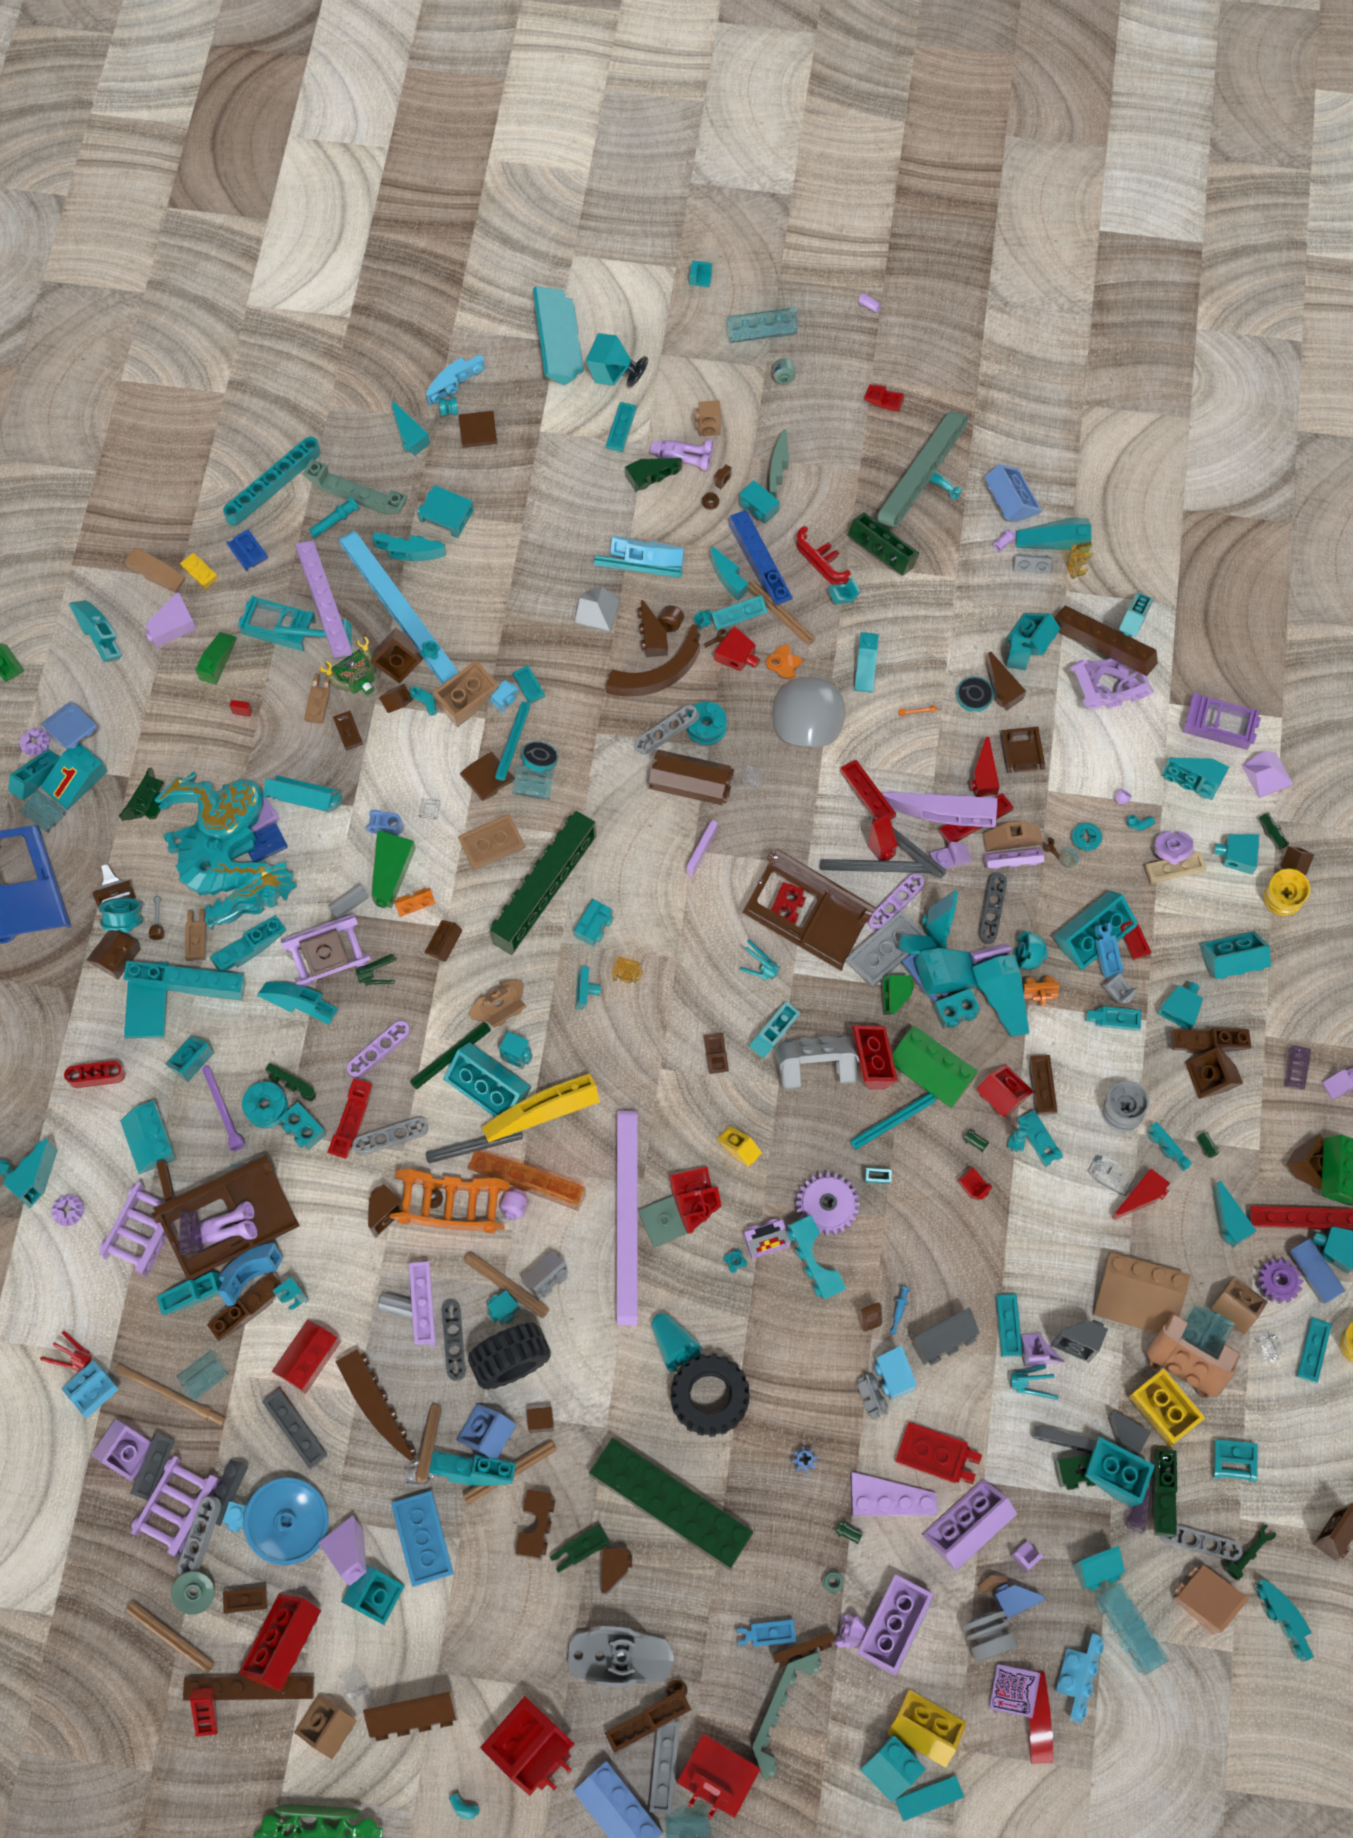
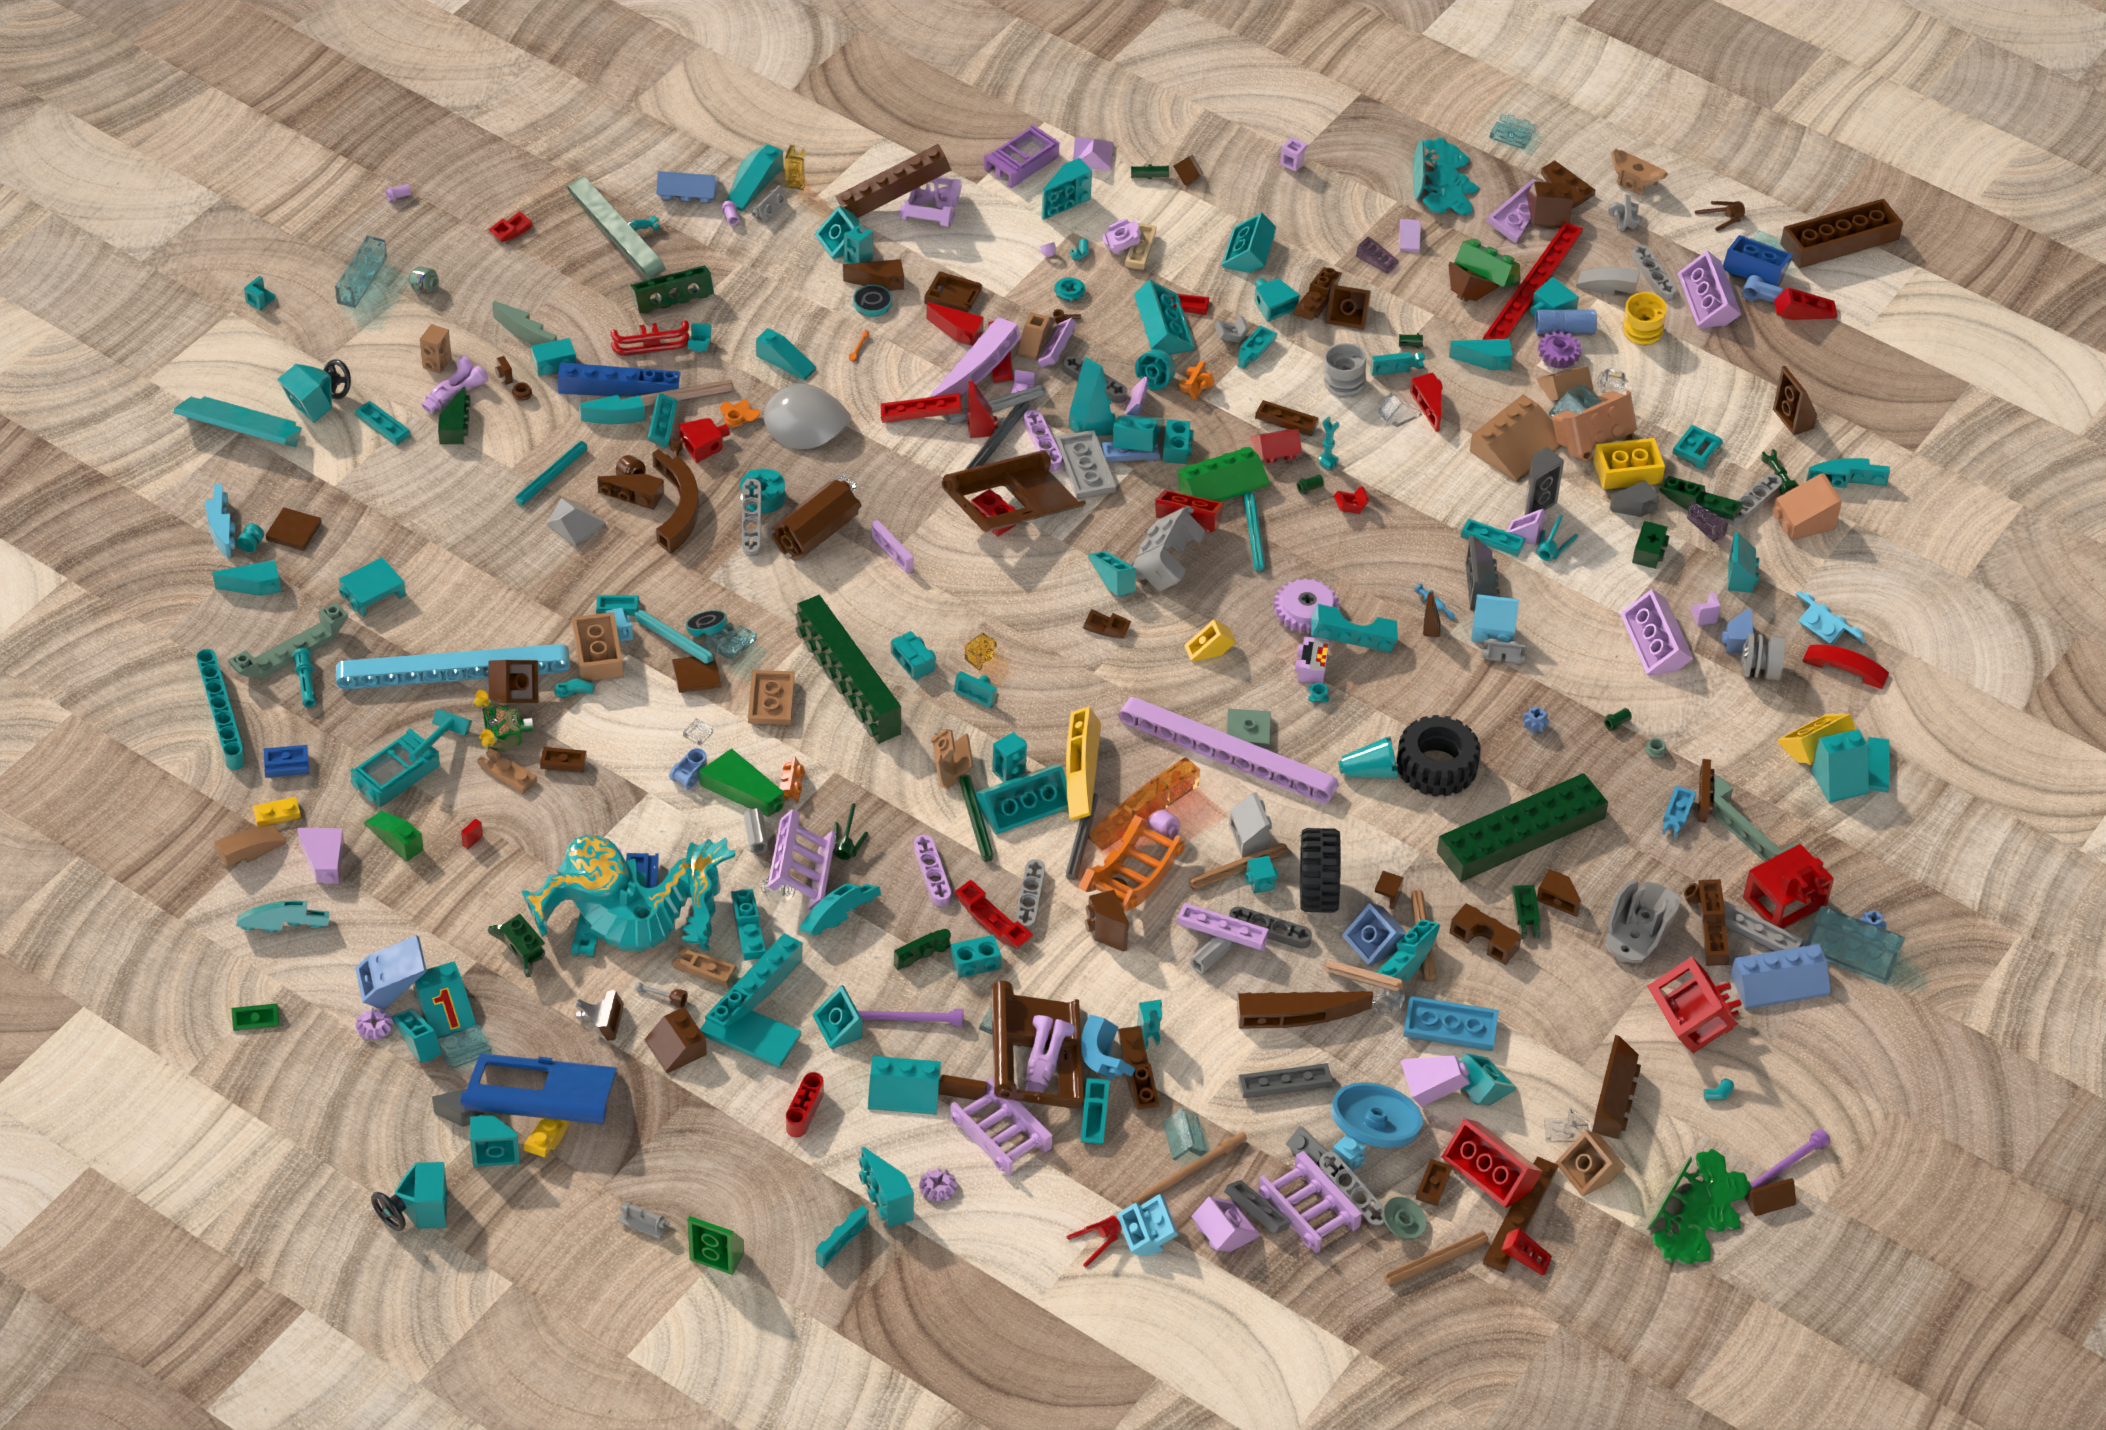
camera: 65 degrees left, 20 degrees down
(120, 914) = (643, 1010): teal wheel -> none
(190, 1235) = (1041, 1079): clear purple slope -> none
(256, 1096) = (932, 977): teal wheel -> none
(302, 793) = (617, 809): teal door -> none
(306, 1356) = (1217, 1042): red slope -> none
(323, 599) = (399, 715): lavender plate -> none
(324, 952) = (808, 855): tile -> none
(396, 698) = (556, 708): reddish brown panel -> none
(413, 550) = (394, 631): teal slope -> none
(430, 645) = (529, 650): teal plate -> none
(443, 940) = (848, 777): reddish brown slope -> none
(647, 553) = (543, 457): medium azure slope -> none
(694, 1196) = (1244, 694): red slope -> none
(702, 619) = (642, 451): teal plate -> none
(768, 968) = (1047, 551): teal plant -> none
(852, 1632) = (1709, 748): lavender rock -> none
(877, 1171) = (1296, 566): teal piece -> none
(886, 1498) = (1602, 681): lavender wing -> none
(895, 1625) = (1722, 713): lavender slope -> none
(896, 992) = (1135, 473): green slope -> none
(916, 943) = (1099, 435): teal slope -> none
(936, 1454) = (1581, 631): red tile -> none
(992, 1583) = (1716, 644): medium nougat tile -> none
(1003, 987) = (1173, 398): teal wedge -> none
(1014, 1691) = (1817, 665): lavender tile -> none
(1040, 1139) = (1343, 443): teal plate -> none
(1063, 1439) = (1621, 539): dark grey beam -> none
(1068, 858) = (1082, 309): clear light blue tile -> none
(1108, 951) = (1191, 318): dark azure plate -> none
(1119, 1472) = (1673, 511): teal slope -> none
(1132, 1629) = (1804, 571): clear light blue brick -> none
(1136, 614) = (885, 150): teal brick -> none
(1239, 852) = (1156, 200): teal torso -> none
(1293, 885) = (1216, 185): yellow wheel -> none
(1314, 1350) = (1631, 359): teal tile -> none

